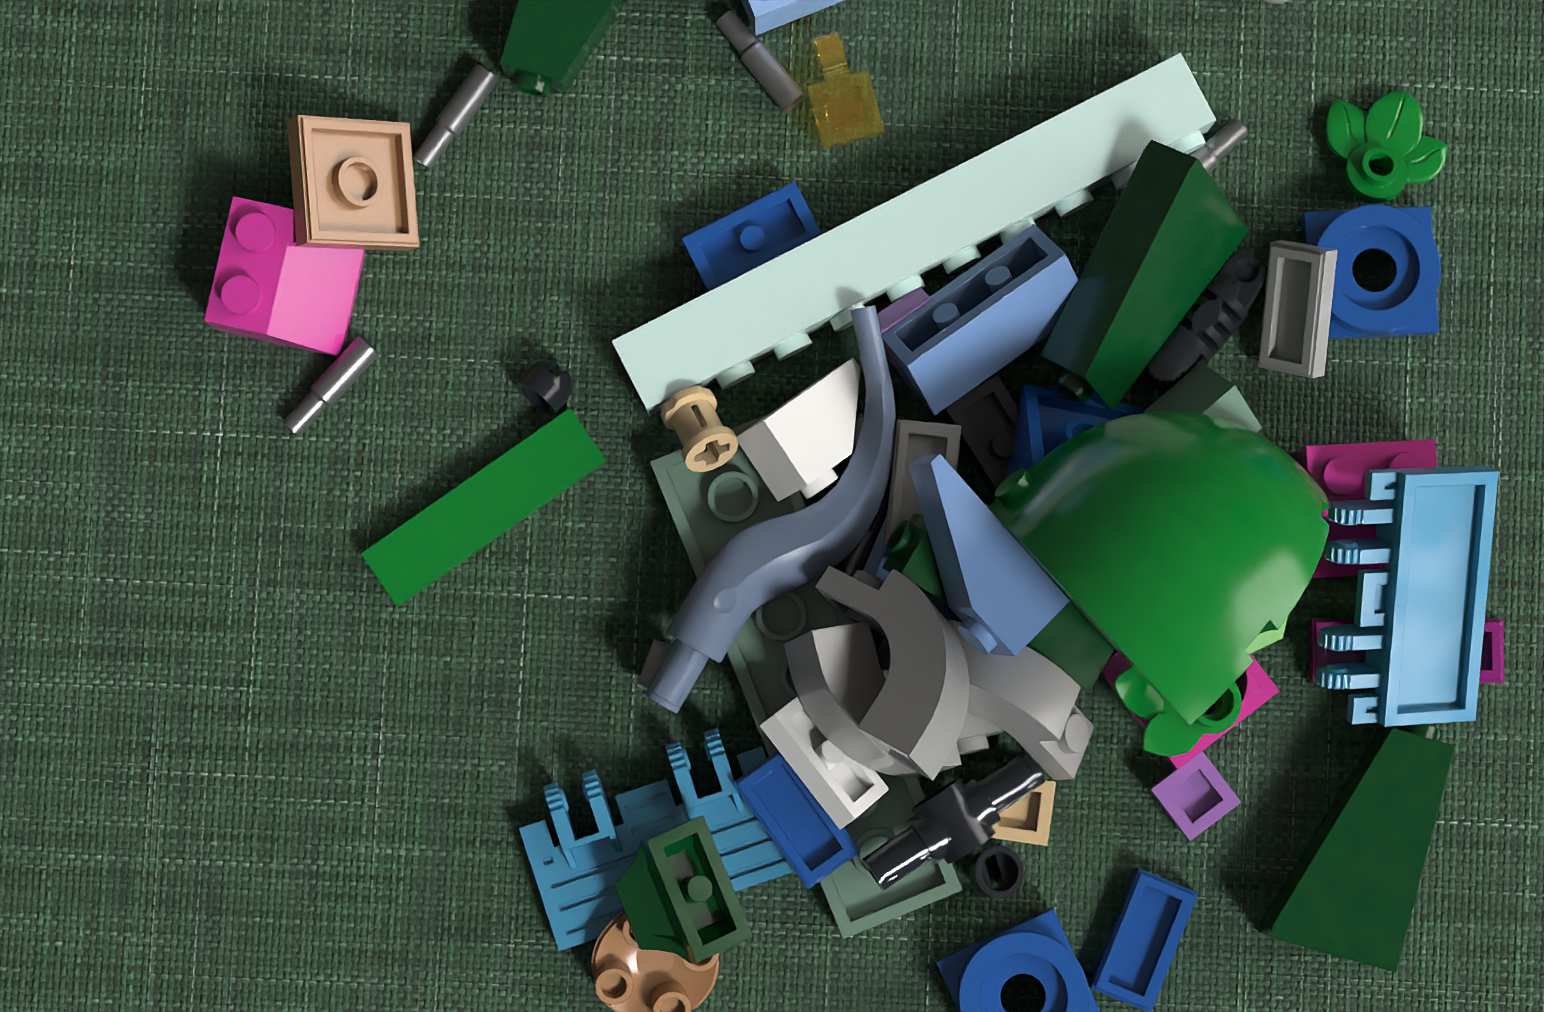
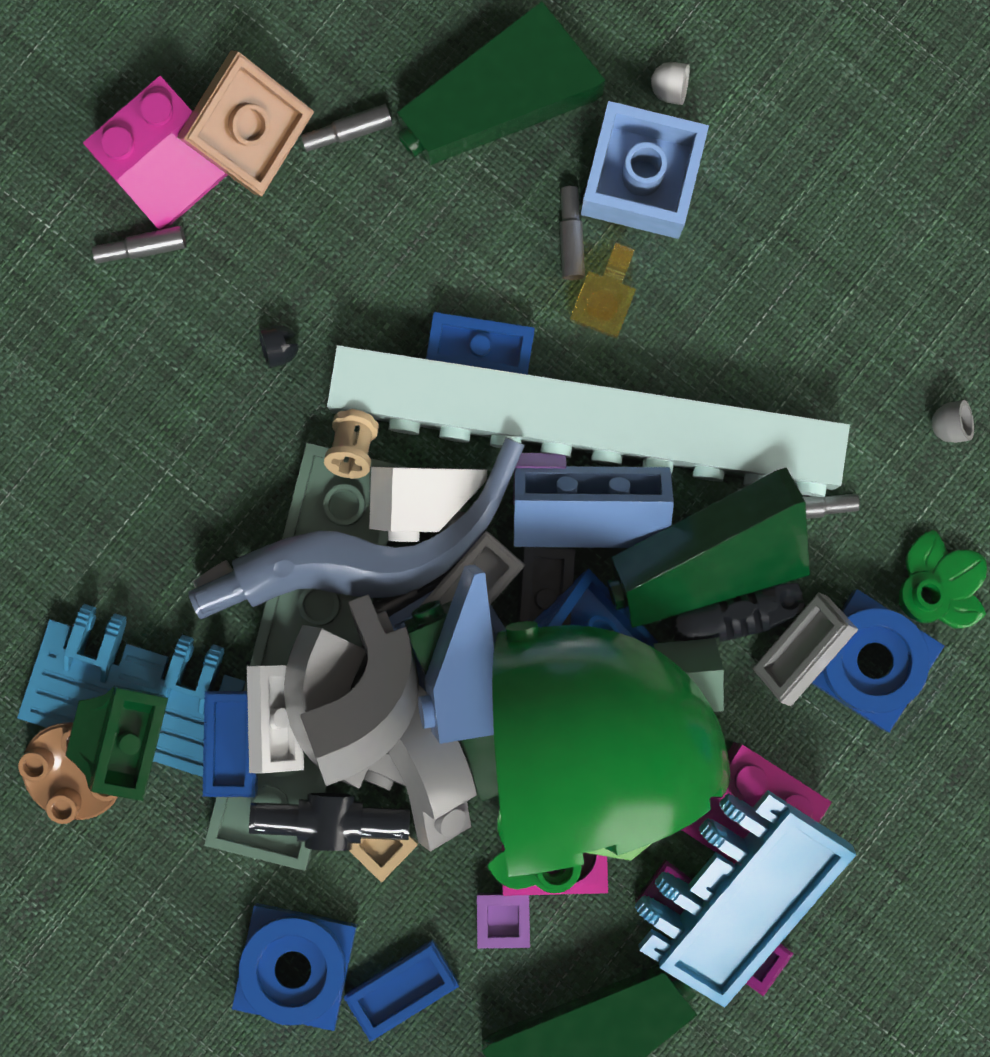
camera: 40 degrees right, 0 degrees up
(483, 507) = (180, 395): green tile -> none
(1006, 867) = (346, 877): black hinge -> none

